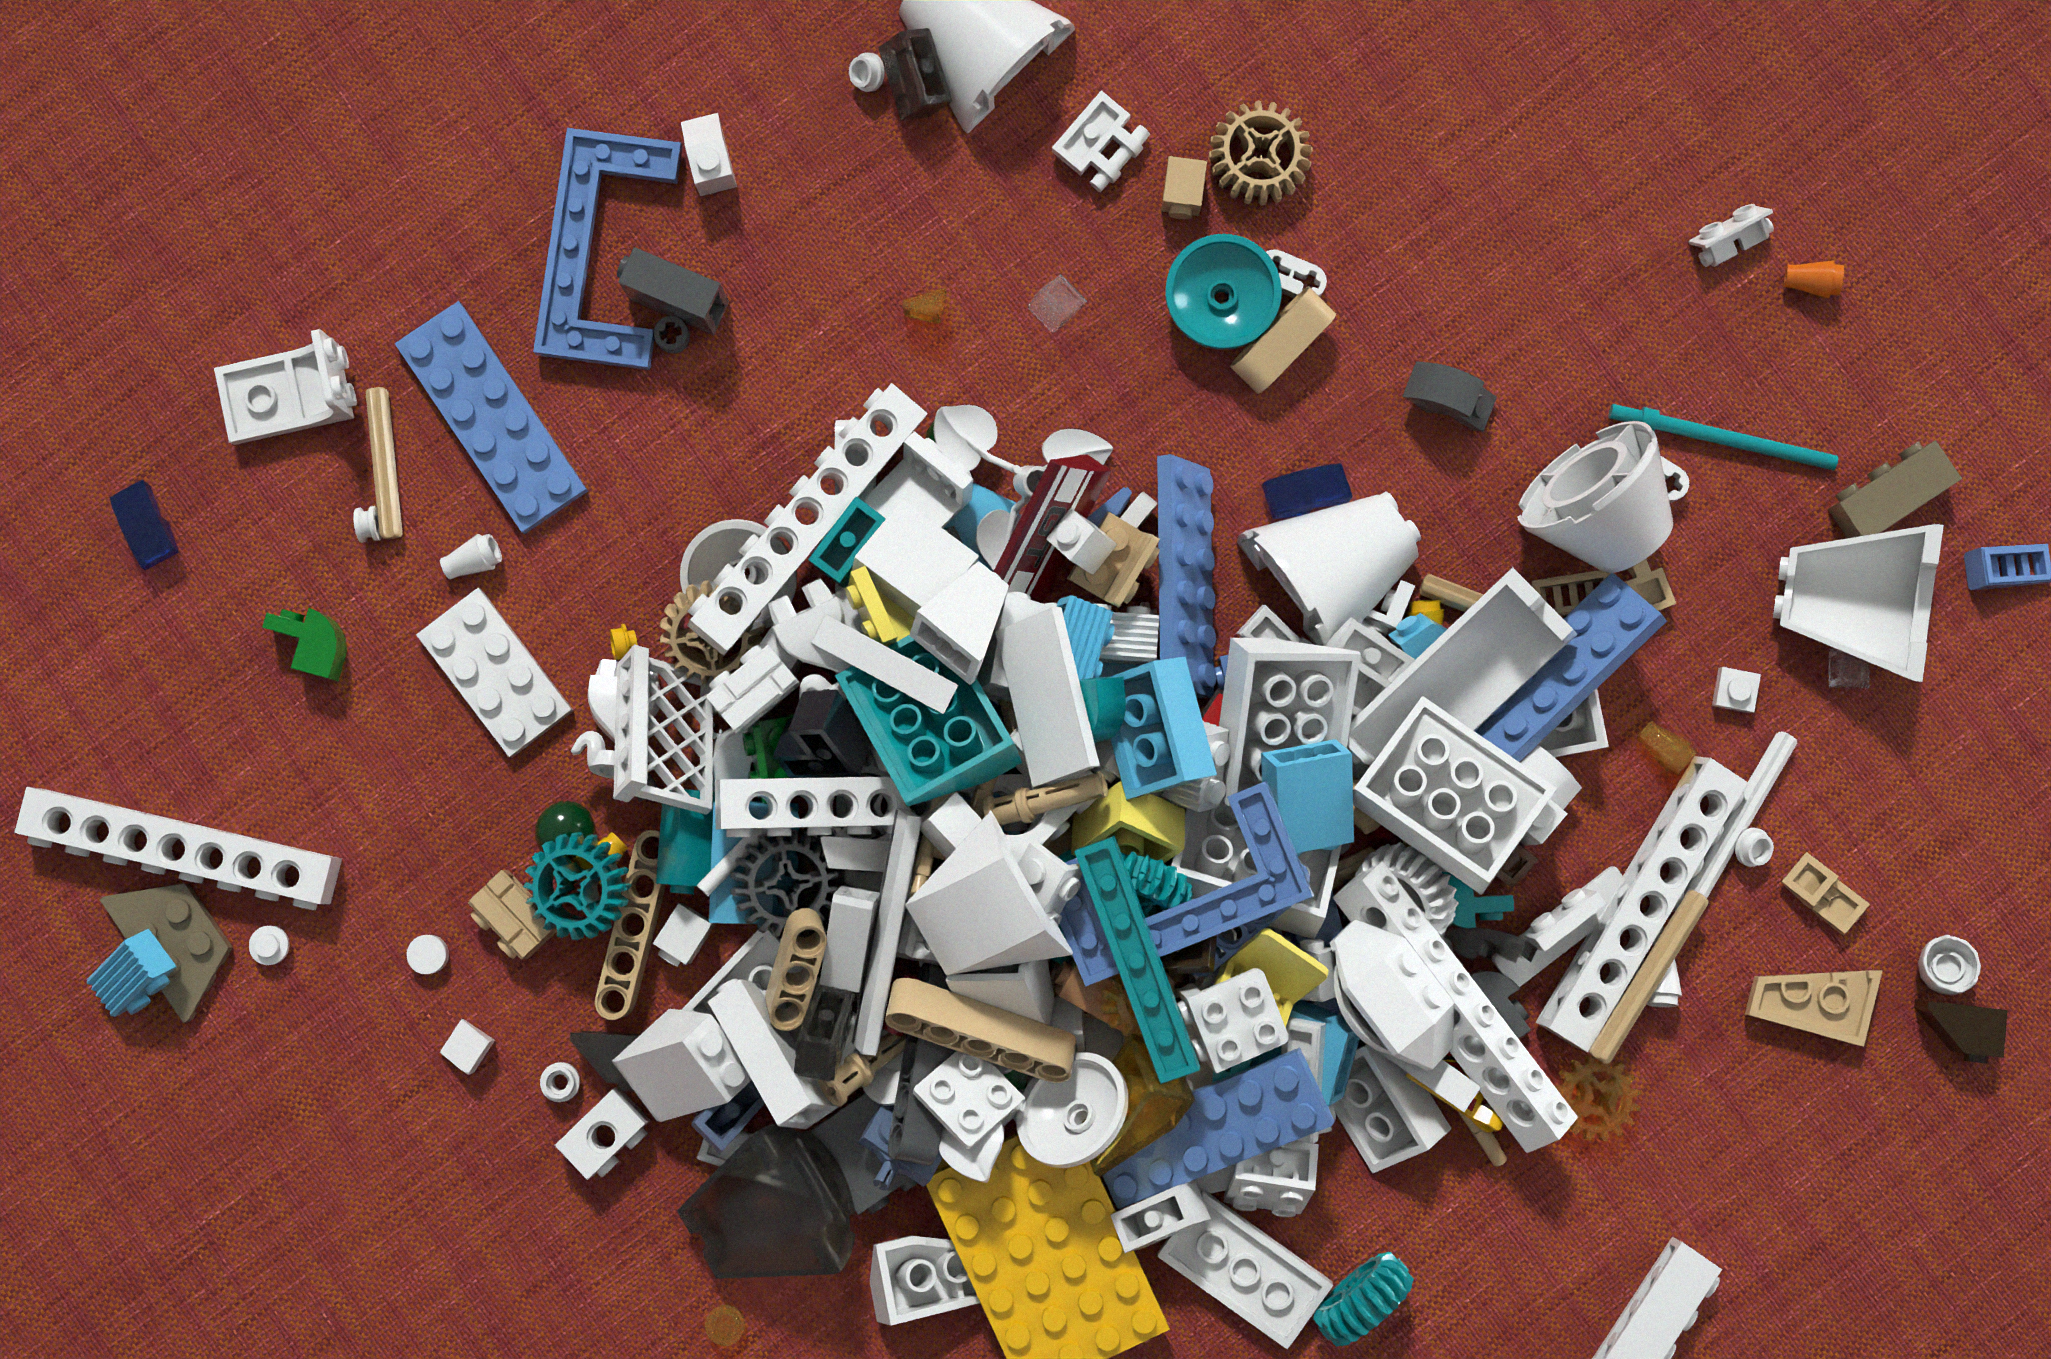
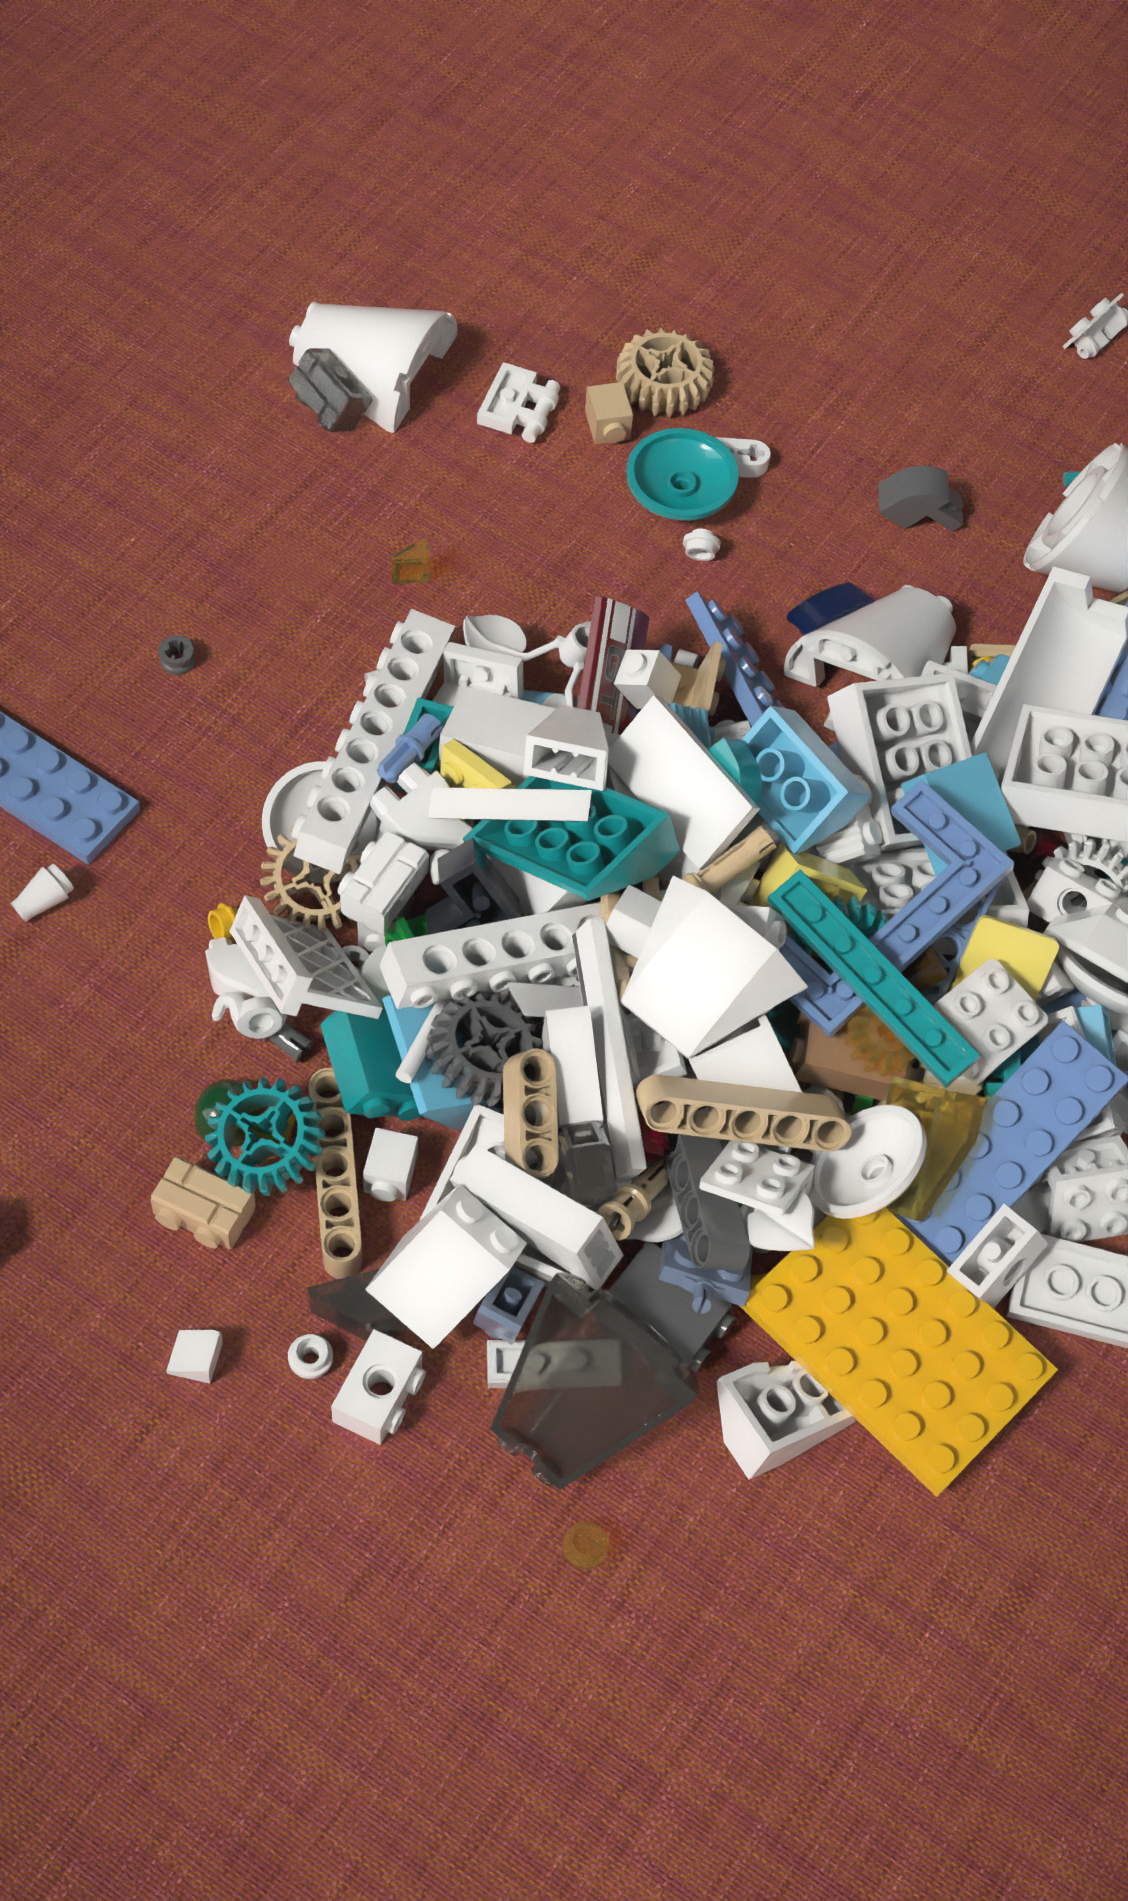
camera: 25 degrees left, 25 degrees down
(427, 954) = (120, 1277): white tile -> none
(494, 672) = (101, 991): white plate -> none
(559, 324) = (63, 675): medium blue plate -> none
(672, 290) = (167, 603): dark grey brick -> none
(708, 154) = (161, 505): white slope -> none
(825, 557) = (409, 748): none -> medium blue axle
(867, 72) = (283, 404): white plate -> none
(1056, 303) = (531, 535): clear slope -> none
(1213, 373) = (701, 544): none -> white plate
(1284, 340) = (752, 499): tan beam -> none

